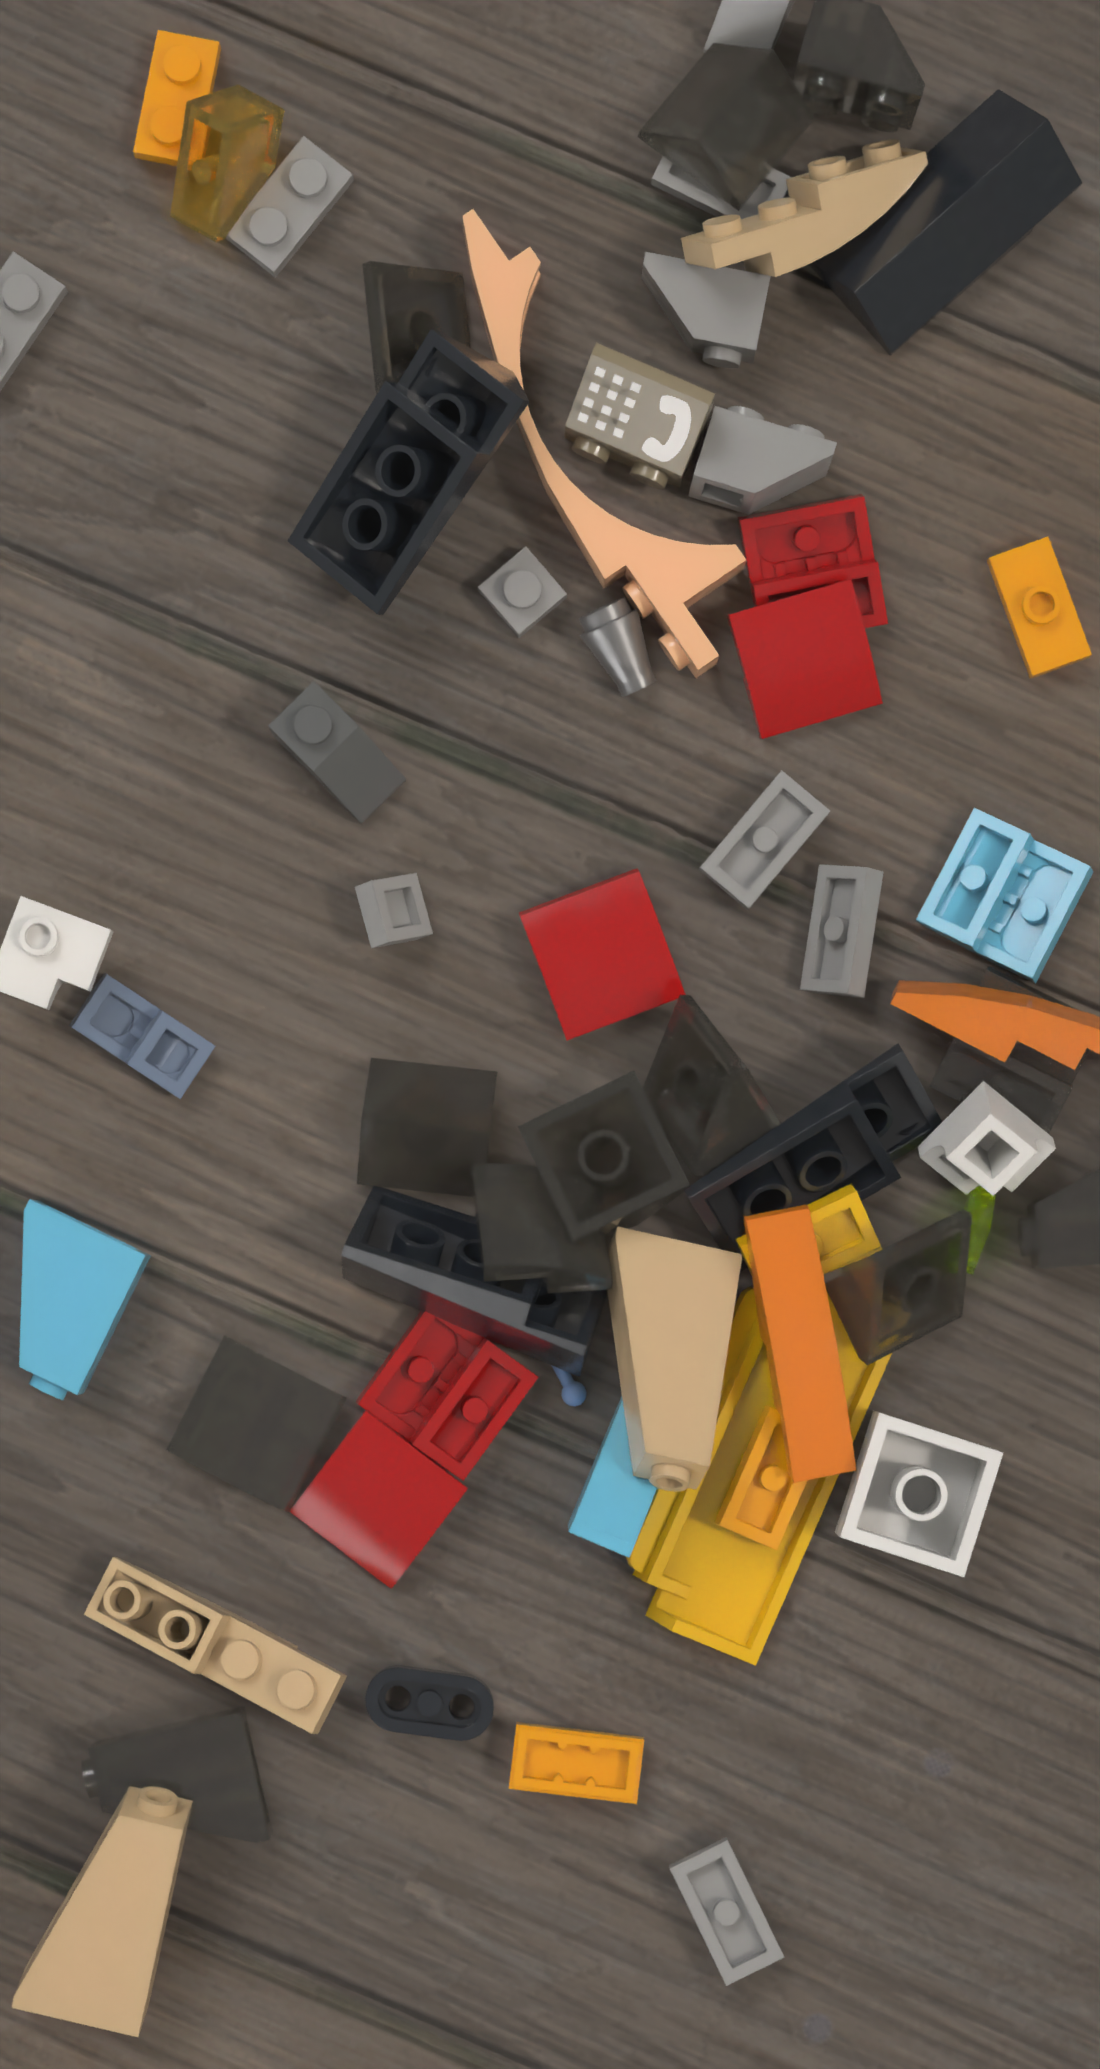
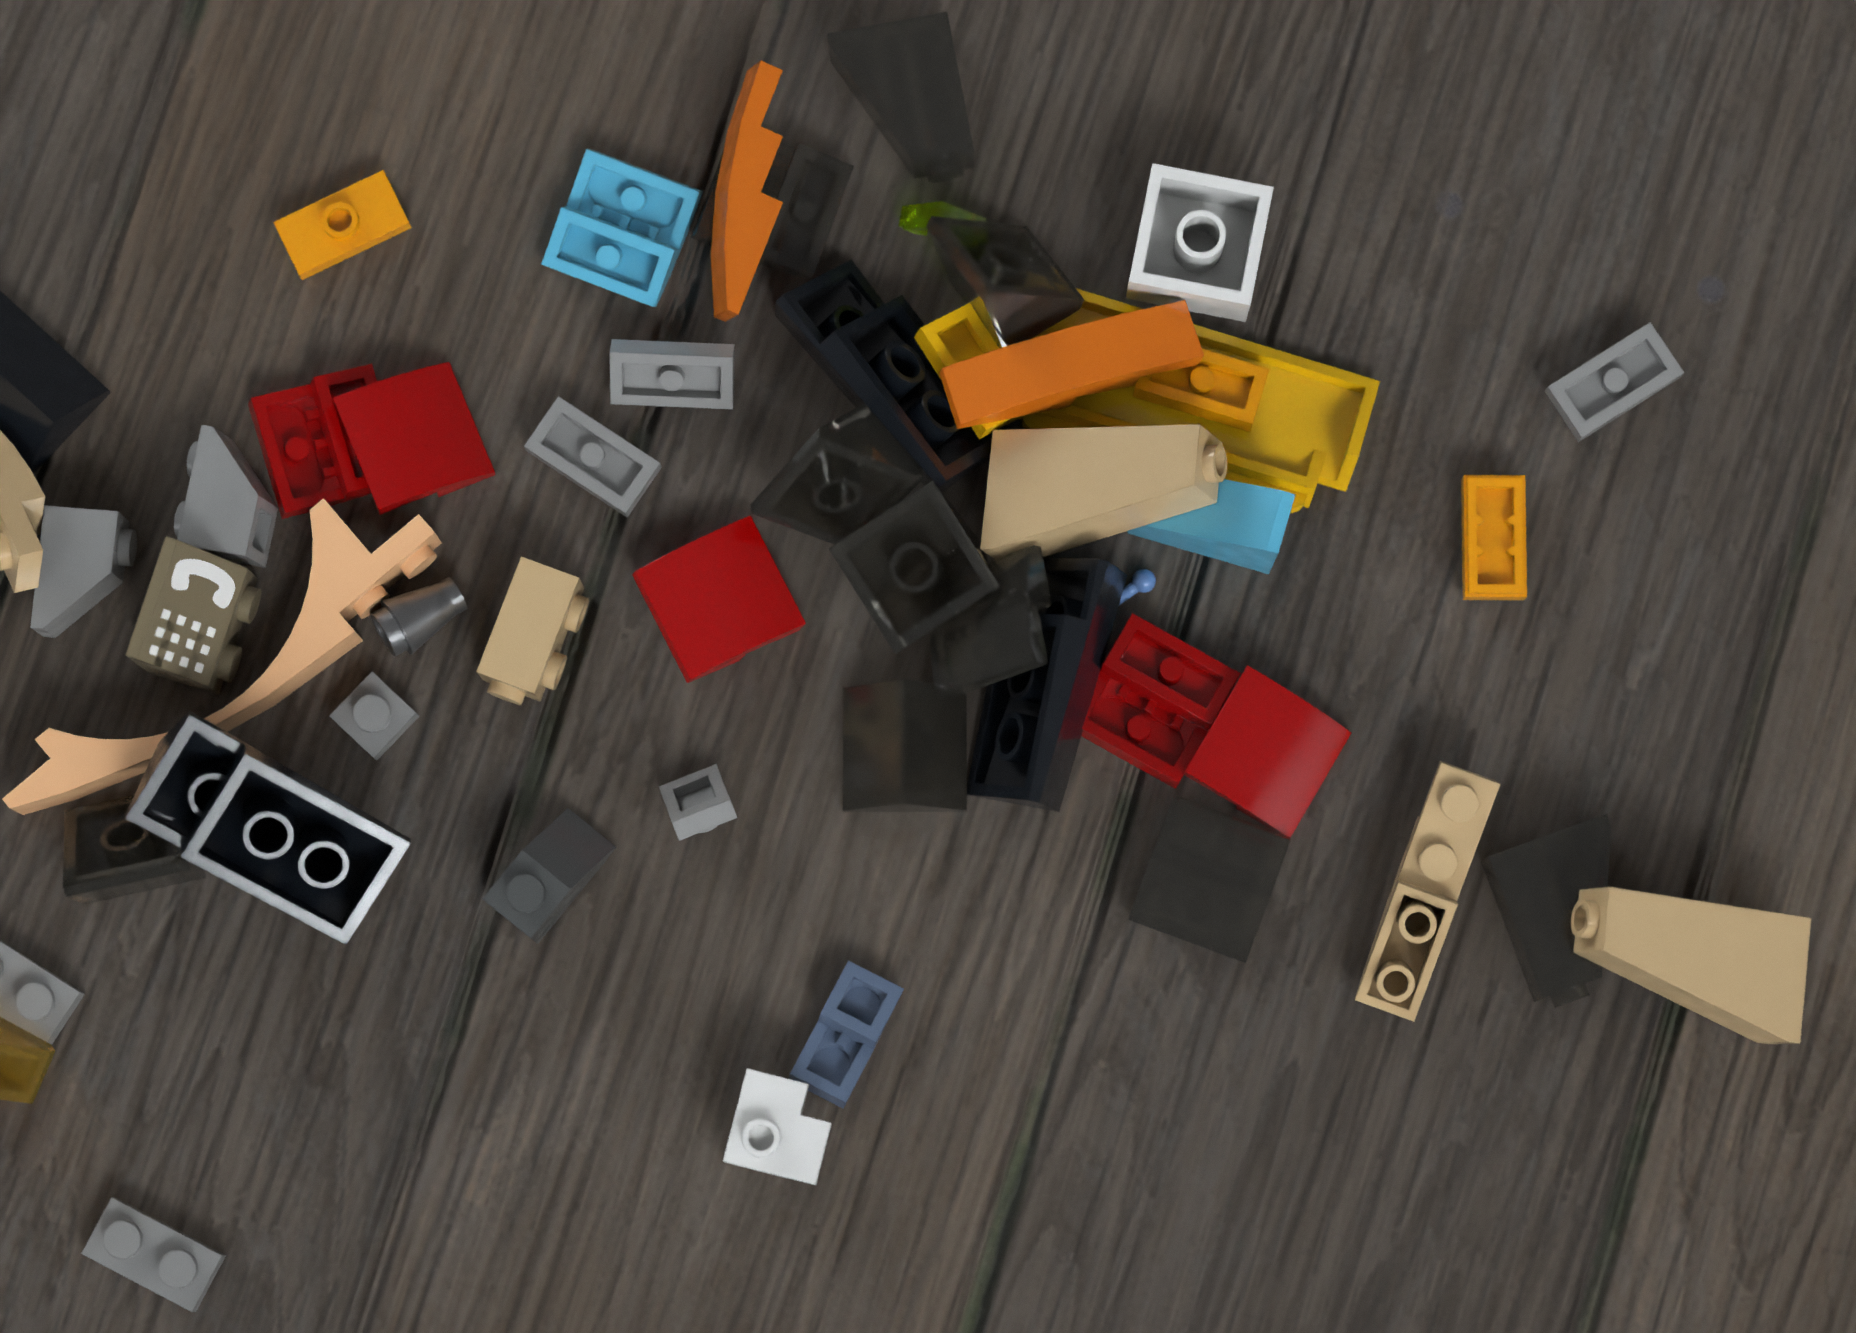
camera: 90 degrees left, 5 degrees down
(70, 1297) = (1109, 1070): medium azure slope -> none
(429, 1707) = (1455, 683): black plate -> none
(587, 757) = (530, 631): none -> tan brick
(986, 1144) = (861, 217): white brick -> none

